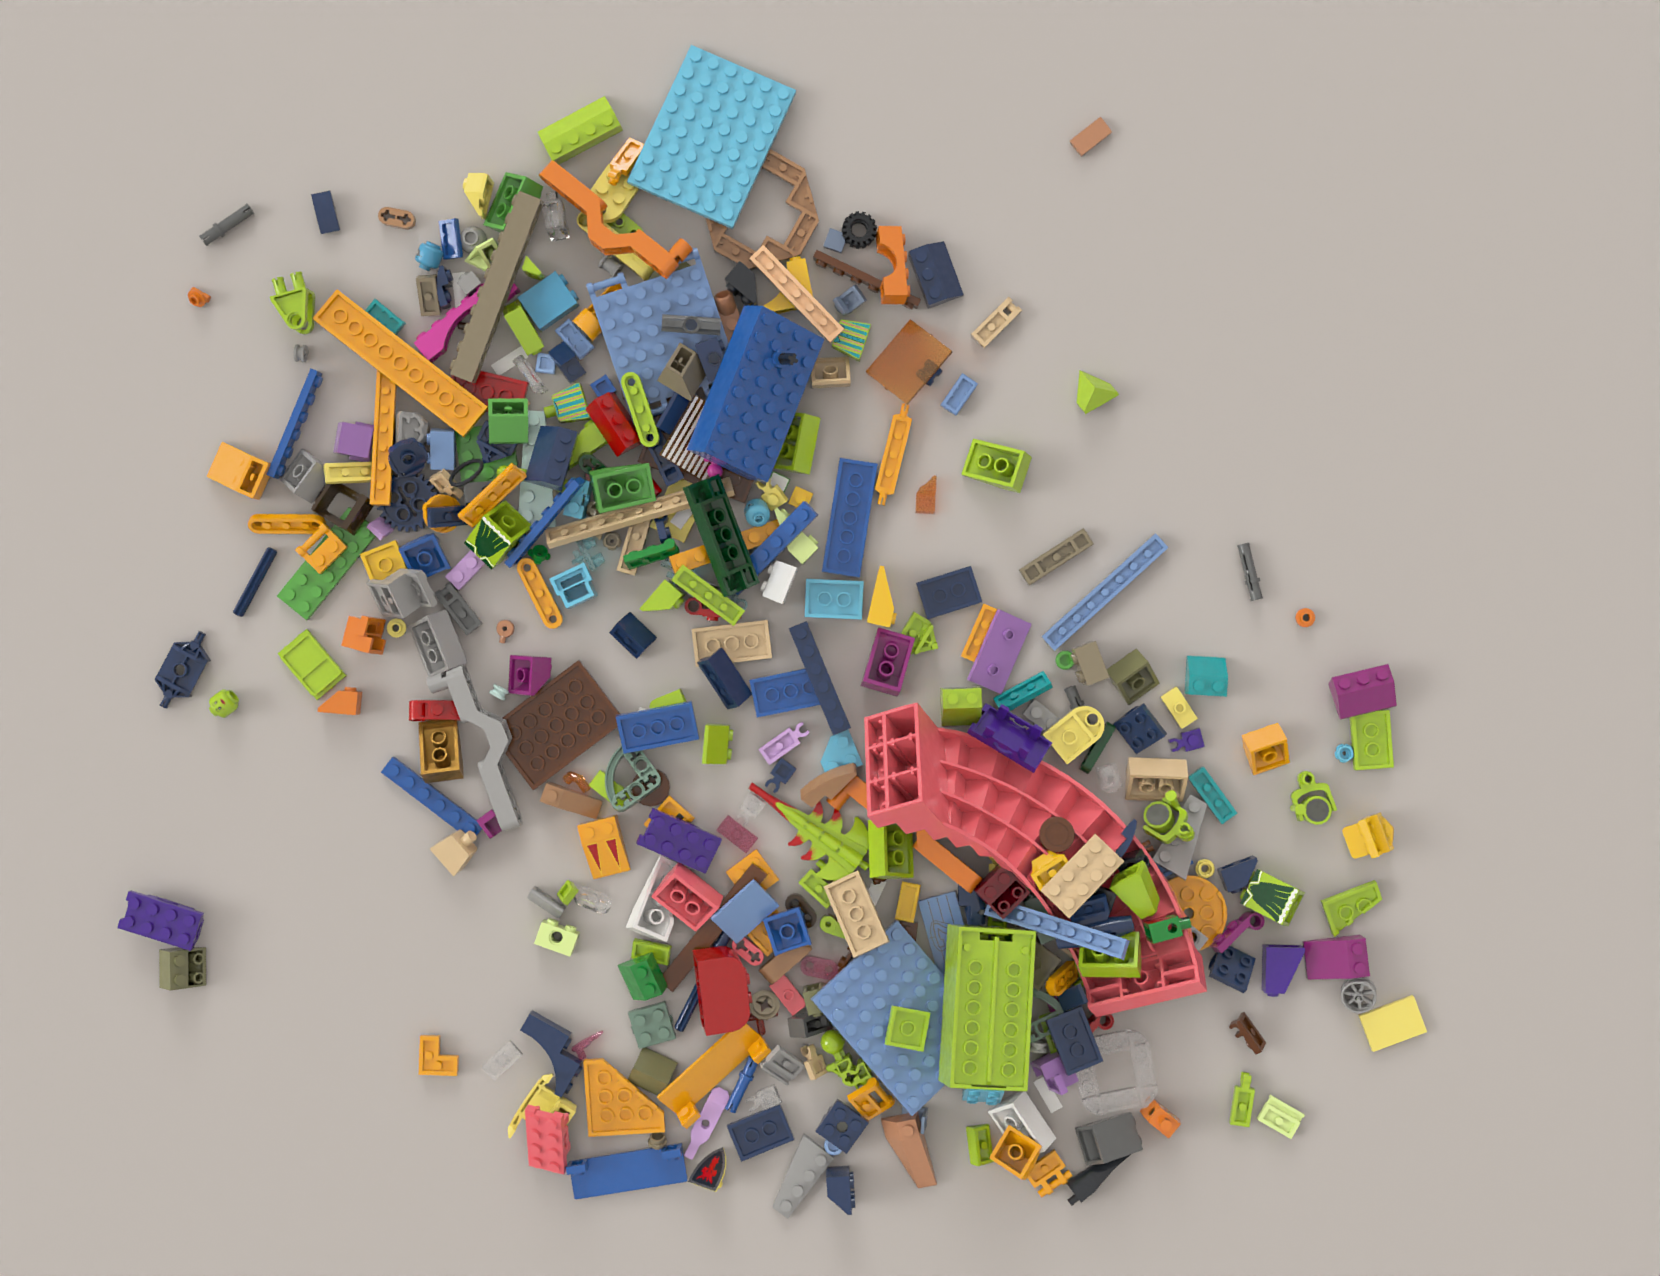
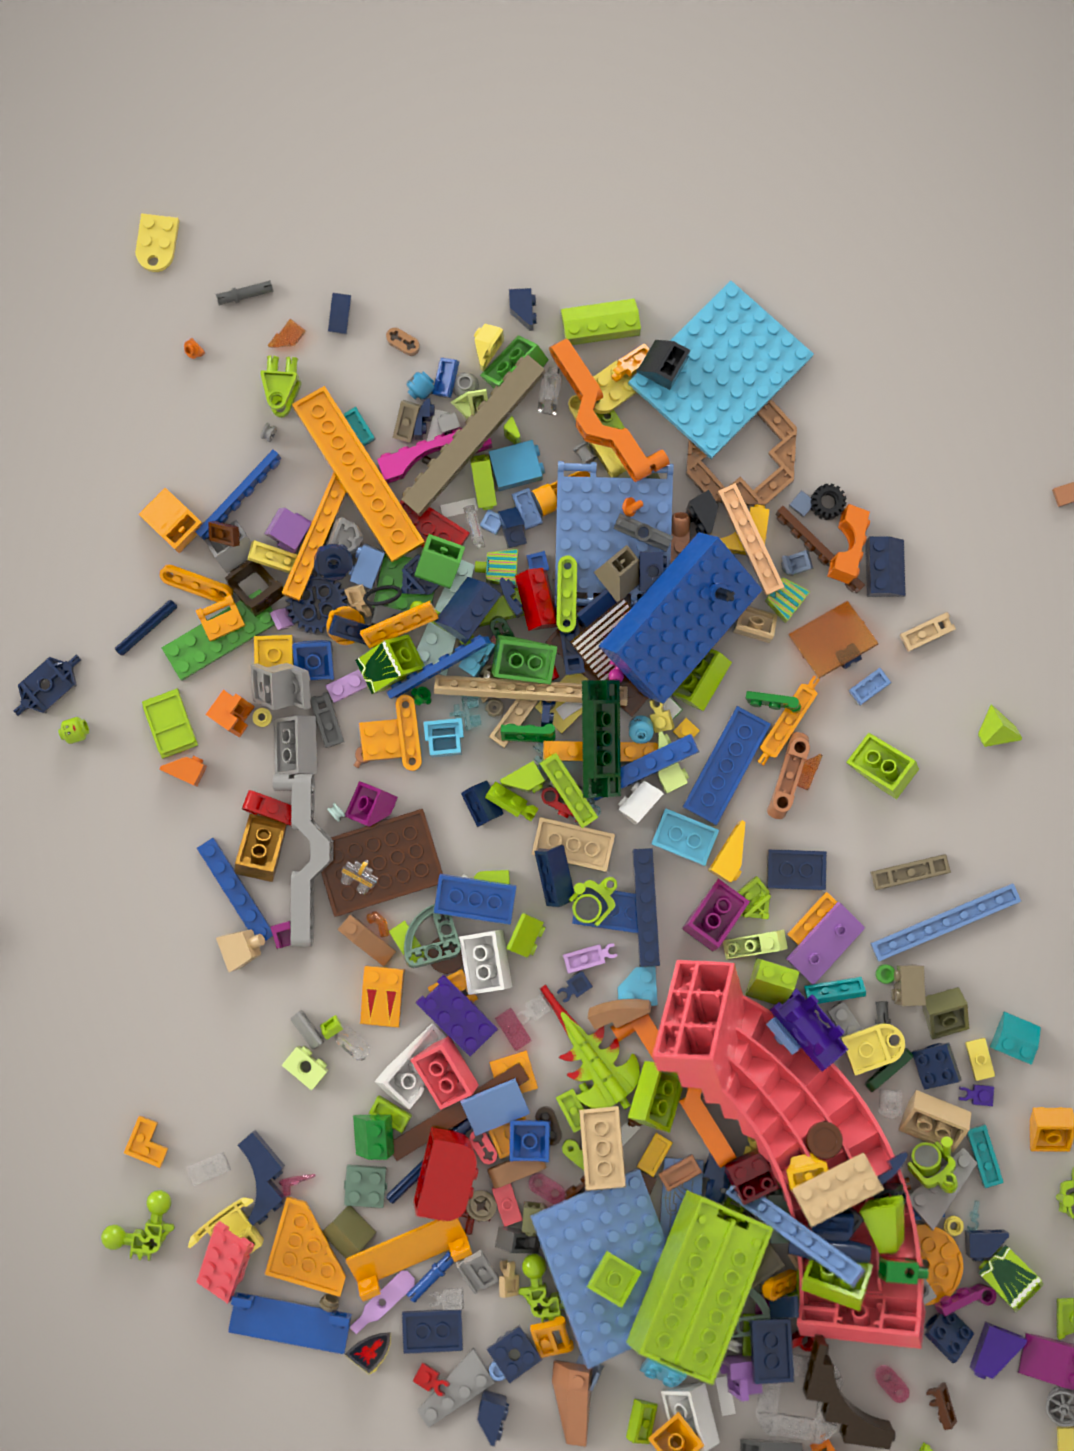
camera: 20 degrees right, 5 degrees down
(122, 202) = (156, 240): none -> light yellow plate
(285, 251) = (288, 335): none -> clear orange slope
(294, 467) = (224, 533): none -> reddish brown plate
(439, 1152) = (115, 1237): none -> lime piece
(498, 143) = (521, 306): none -> dark blue slope
(515, 610) = (380, 740): none -> light orange plate
(543, 742) = (360, 873): none -> clear hips
(584, 427) = (508, 592): none -> dark blue slope
(654, 151) = (664, 362): none -> black slope
(659, 624) = (511, 801): none -> lime plate
(671, 303) = (630, 506): none -> orange plate
(688, 781) = (485, 962): none -> white slope
(765, 697) = (588, 907): none -> lime piece
(772, 1175) = (428, 1378): none -> red plate
(872, 441) = (774, 701): none -> green plate
(911, 506) = (789, 775): none -> nougat plate
(934, 675) = (755, 944): none -> yellowish green slope
(936, 910) = (680, 1173): none -> nougat tile
(986, 752) = (782, 1036): none -> medium blue plate
(1175, 1078) = (856, 1425): none -> dark brown arch
(1196, 1030) = (893, 1384): none -> clear pink plate
(1220, 852) = (974, 1215): none -> clear light blue hand

